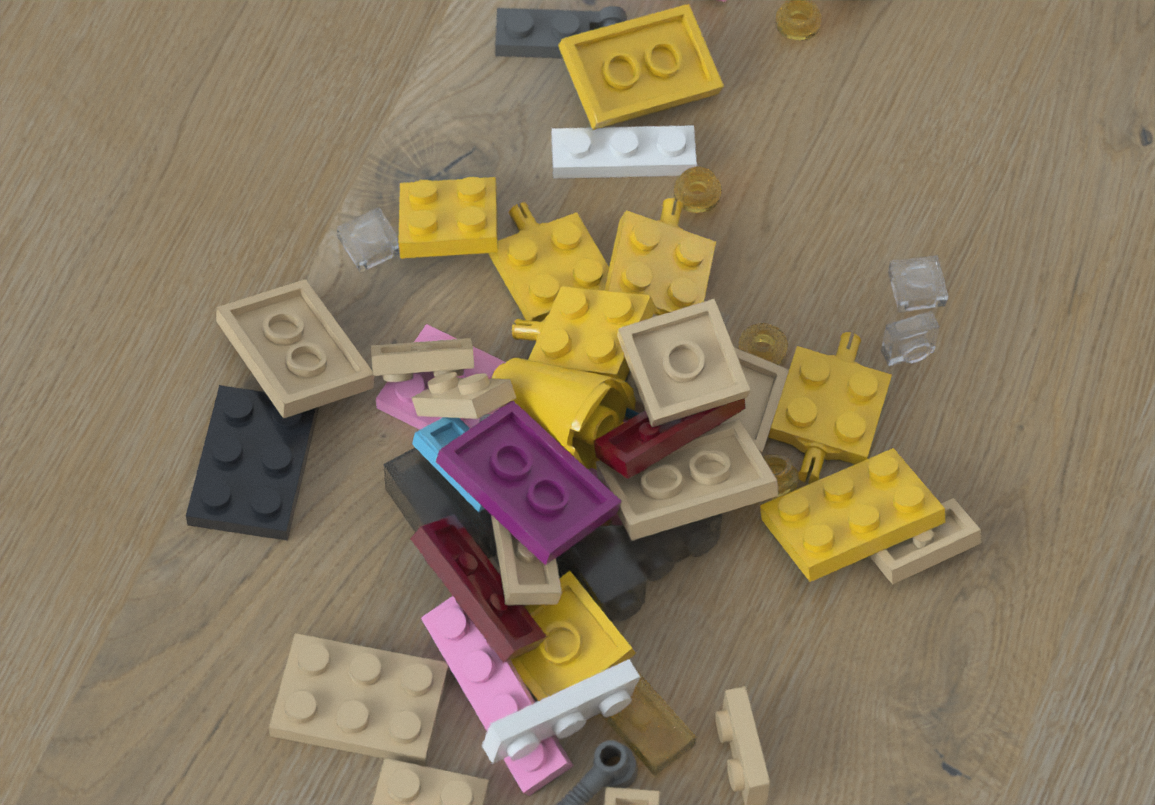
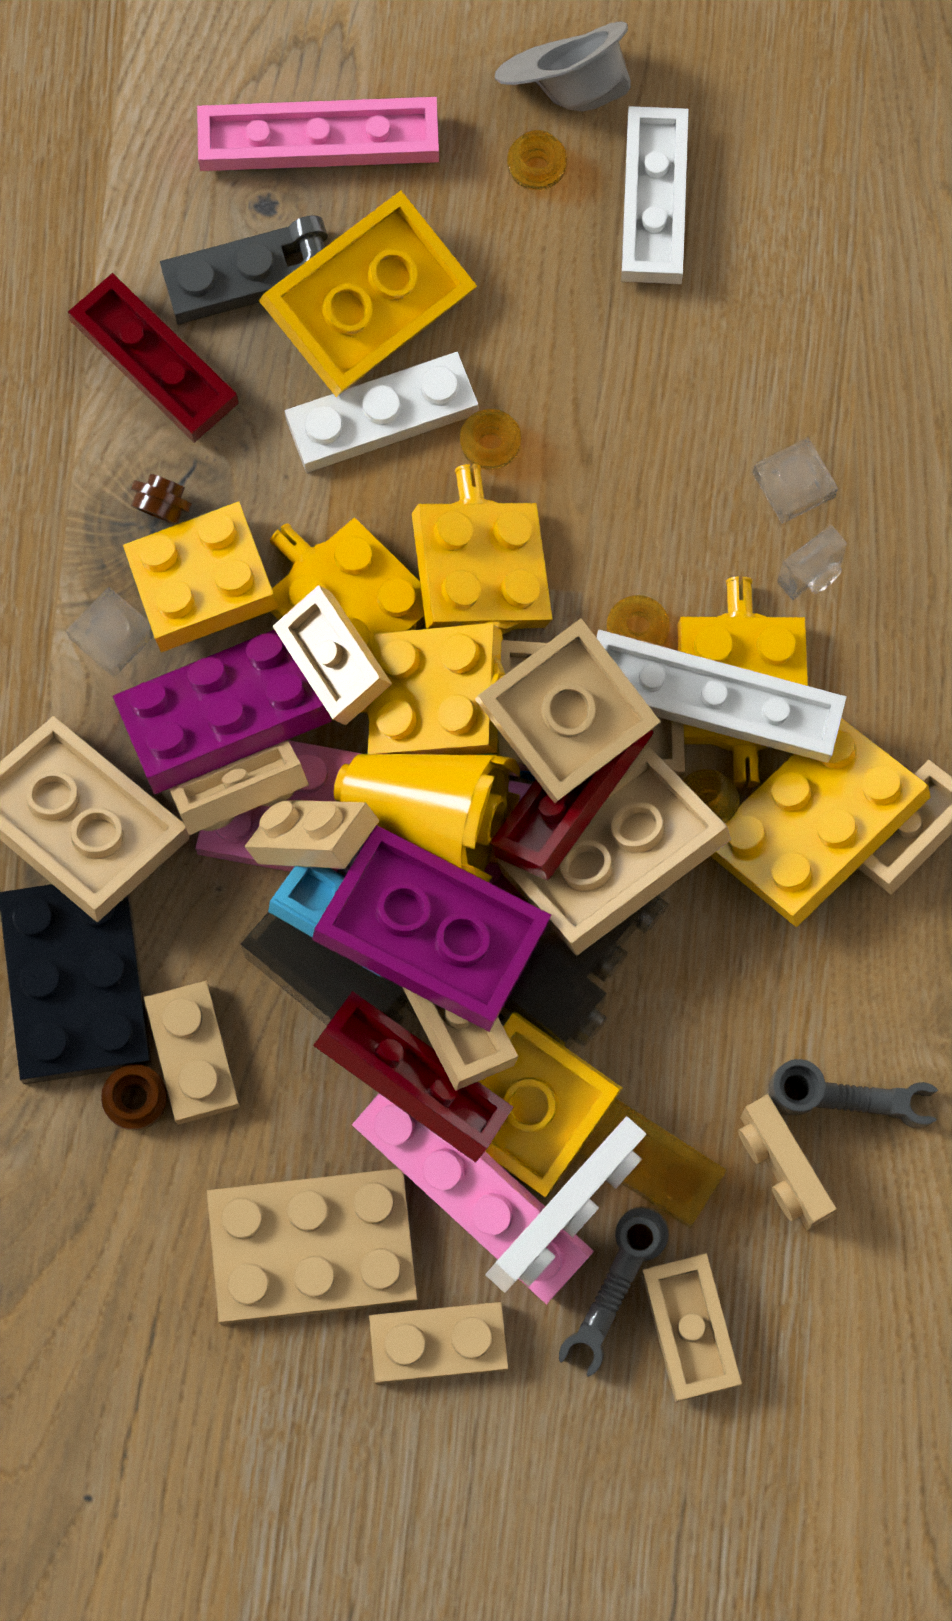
camera: 15 degrees left, 15 degrees up
(263, 542) = (120, 1083): none -> reddish brown plate
(320, 538) = (191, 1052): none -> tan plate
(430, 307) = (218, 710): none -> magenta plate
(438, 160) = (160, 498): none -> reddish brown plate
(469, 68) = (153, 357): none -> dark red plate
(524, 287) = (332, 655): none -> plate
(778, 688) = (821, 1094): none -> dark grey brick
(814, 404) = (729, 698): none -> white plate
(877, 64) = (655, 195): none -> white plate

